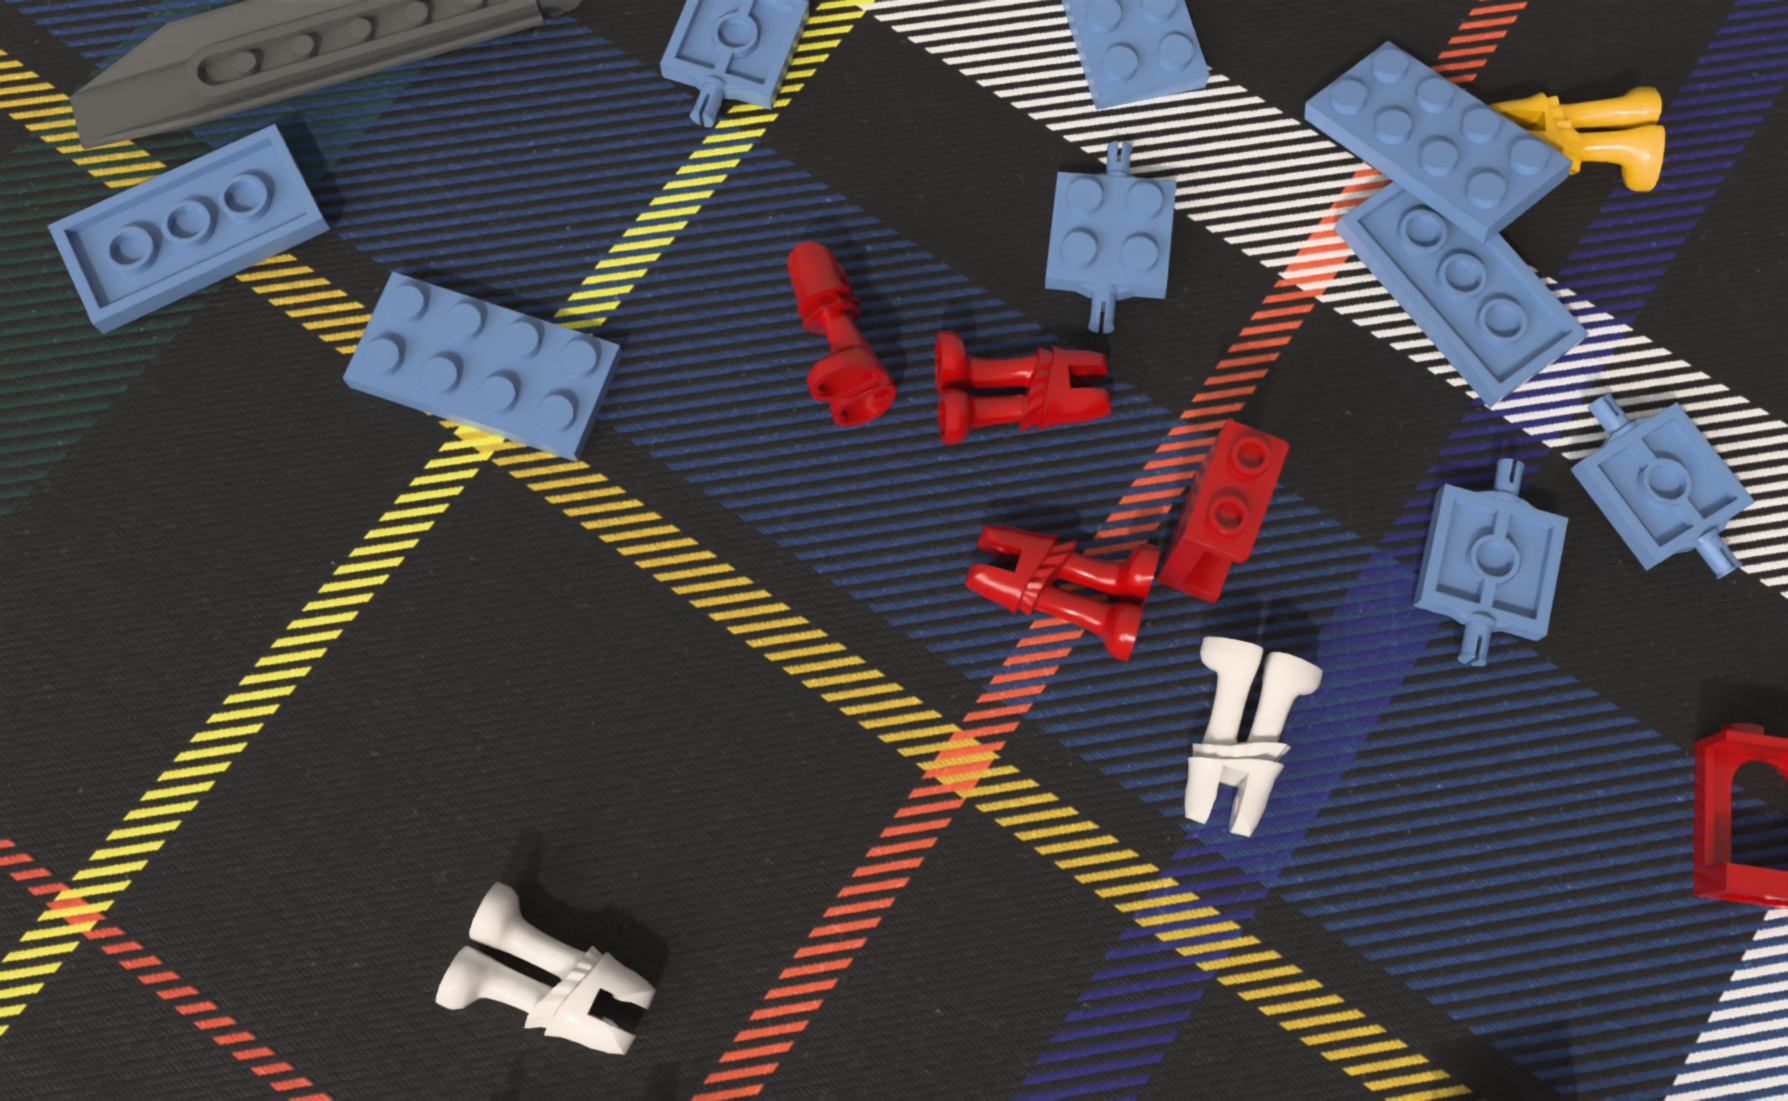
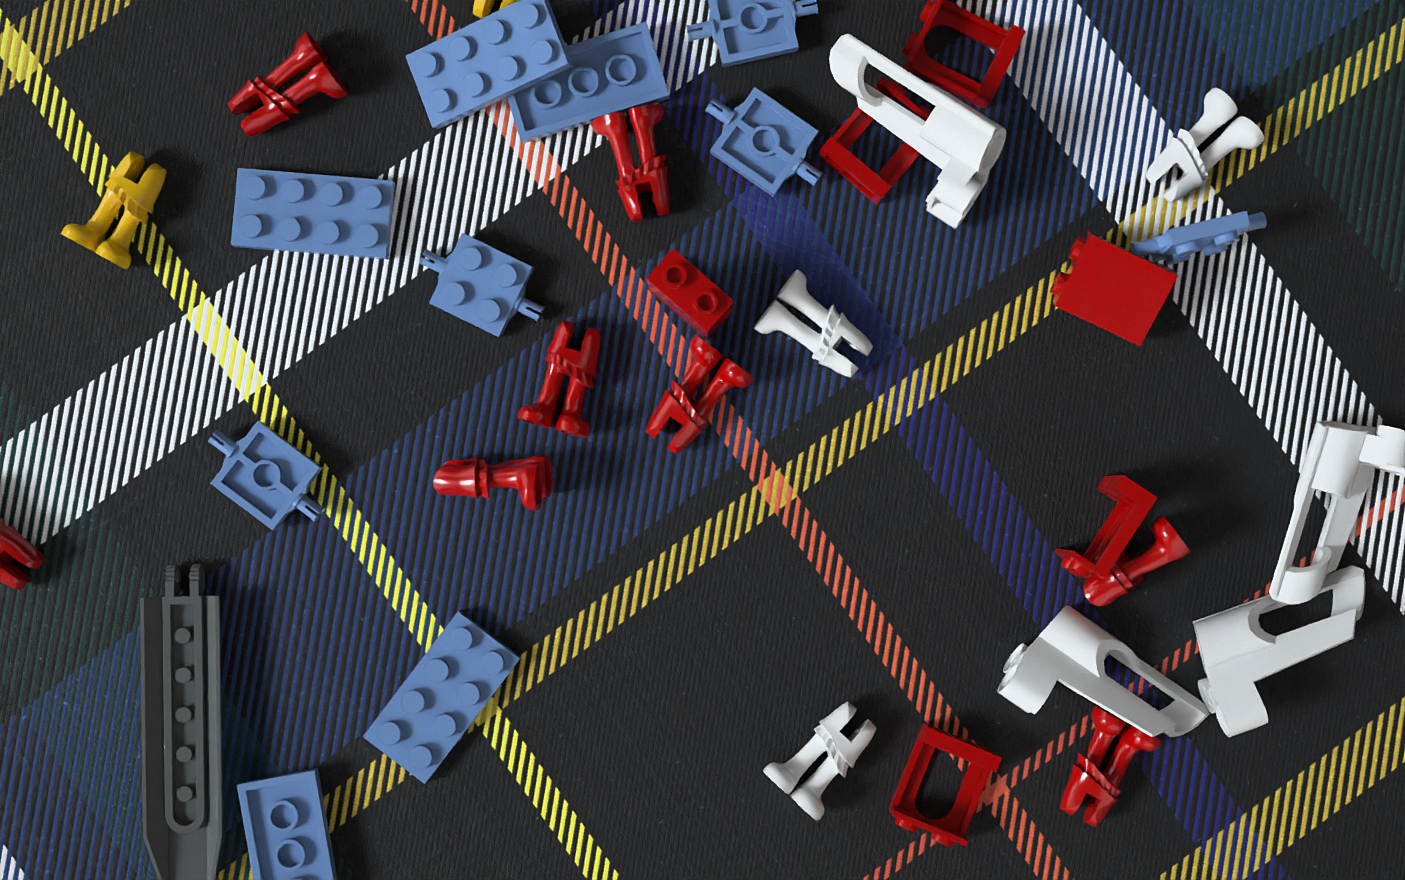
camera: 70 degrees left, 15 degrees up
(1370, 411) = (652, 173): none -> red piece
(1641, 838) = (952, 137): none -> white panel
(1642, 727) = (836, 148): none -> red panel

